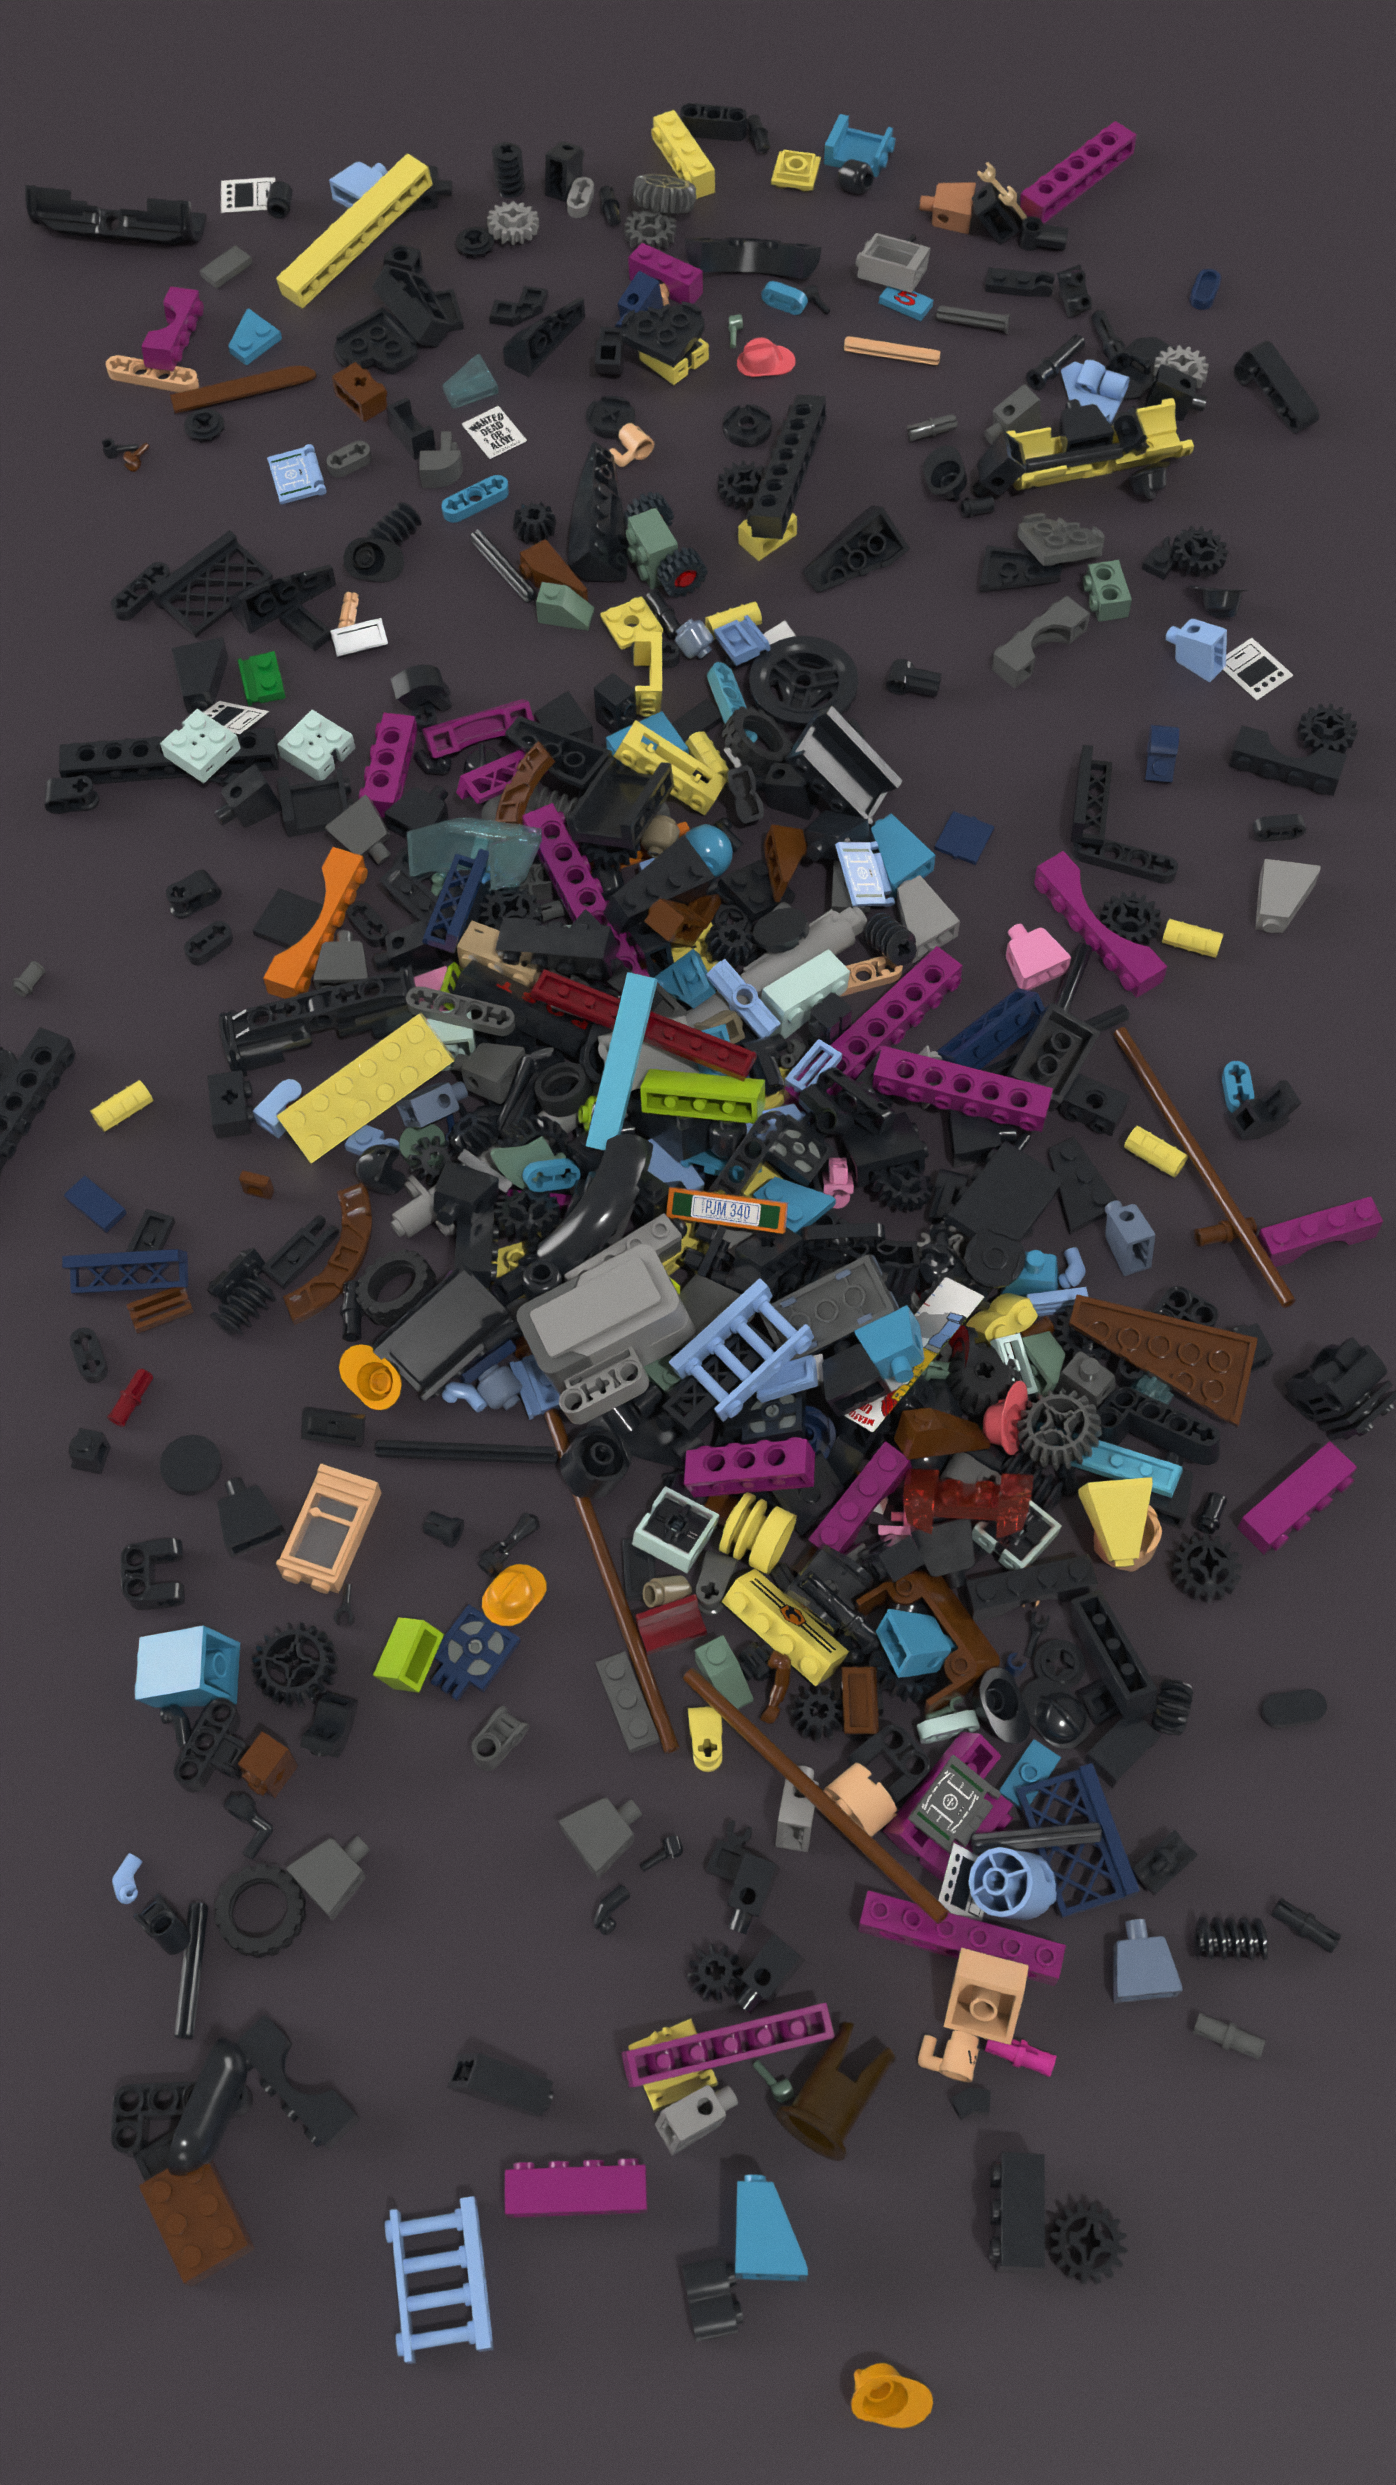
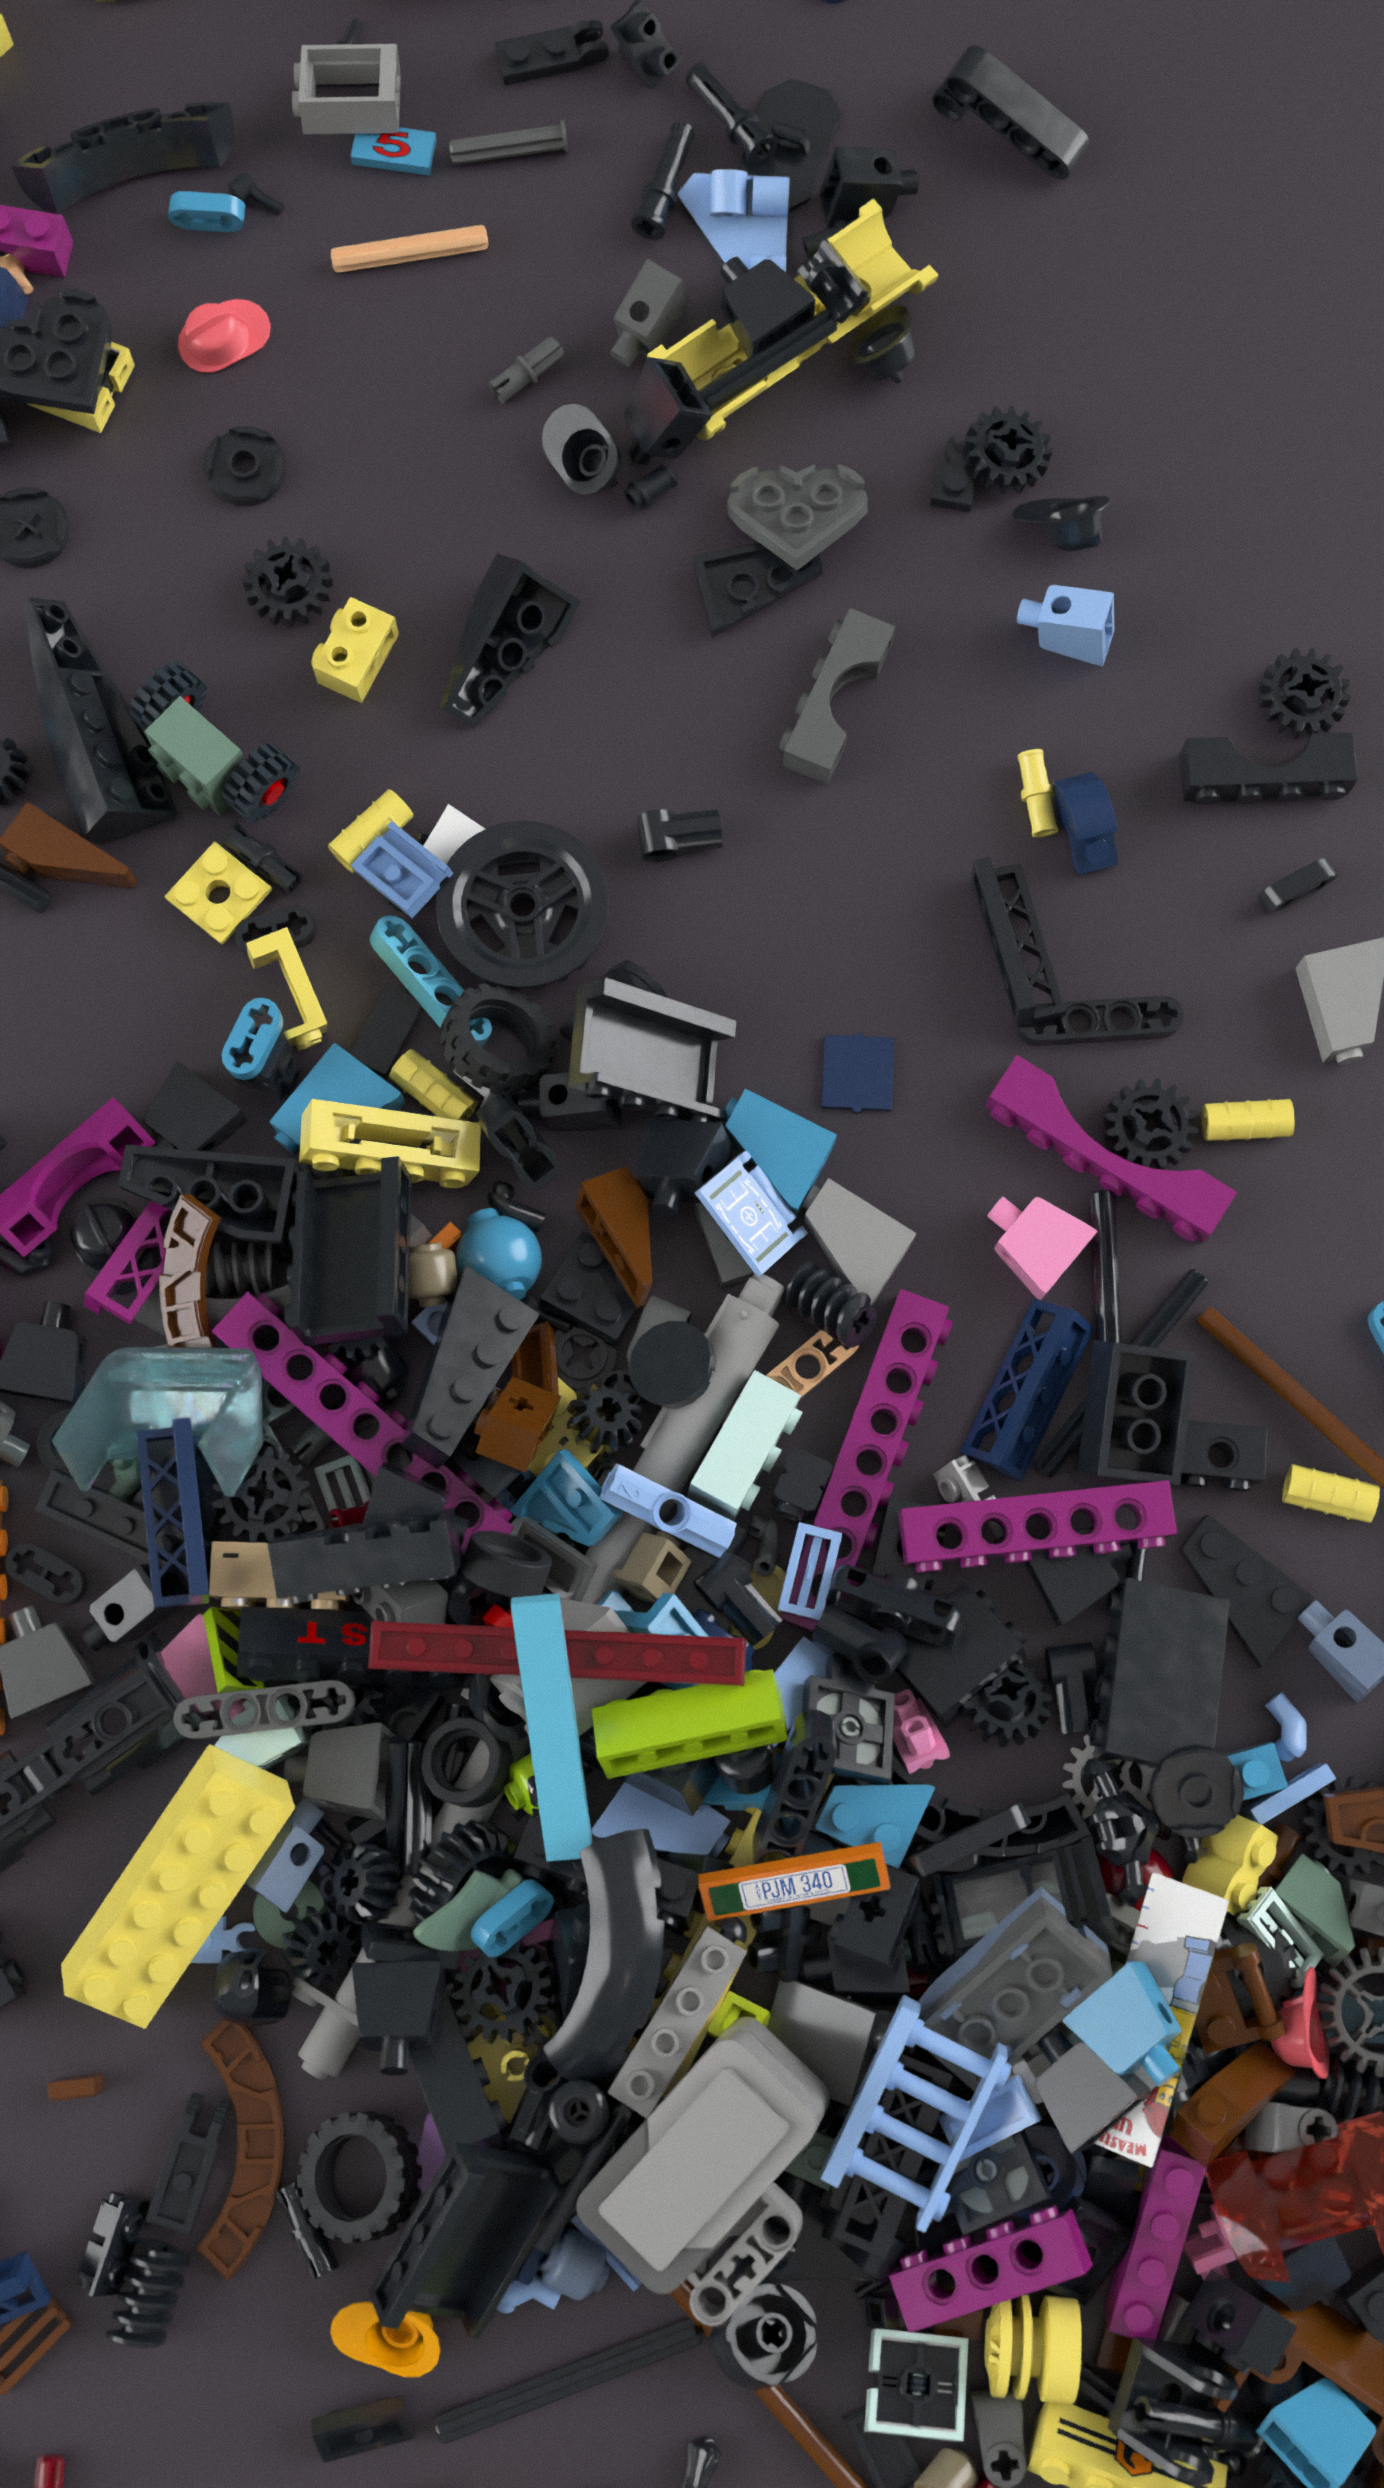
camera: 25 degrees left, 15 degrees up
(278, 1100) = (50, 1939): light blue leg -> none
(563, 607) = (104, 906): sand green slope -> none
(617, 682) = (261, 1042): none -> dark azure beam
(637, 443) = (90, 565): light nougat piece -> none
(694, 639) = (326, 889): sand blue head -> none
(735, 323) = (148, 286): sand green hand -> none
(787, 467) = (346, 535): black brick -> none
(955, 1377) = (1219, 2013): none -> reddish brown plate
(1107, 590) = (909, 565): sand green brick -> none
(1139, 729) = (1037, 793): none -> light yellow pin
(1184, 361) = (857, 123): light grey gear -> none
(1255, 669) = (1159, 618): white sticker -> none

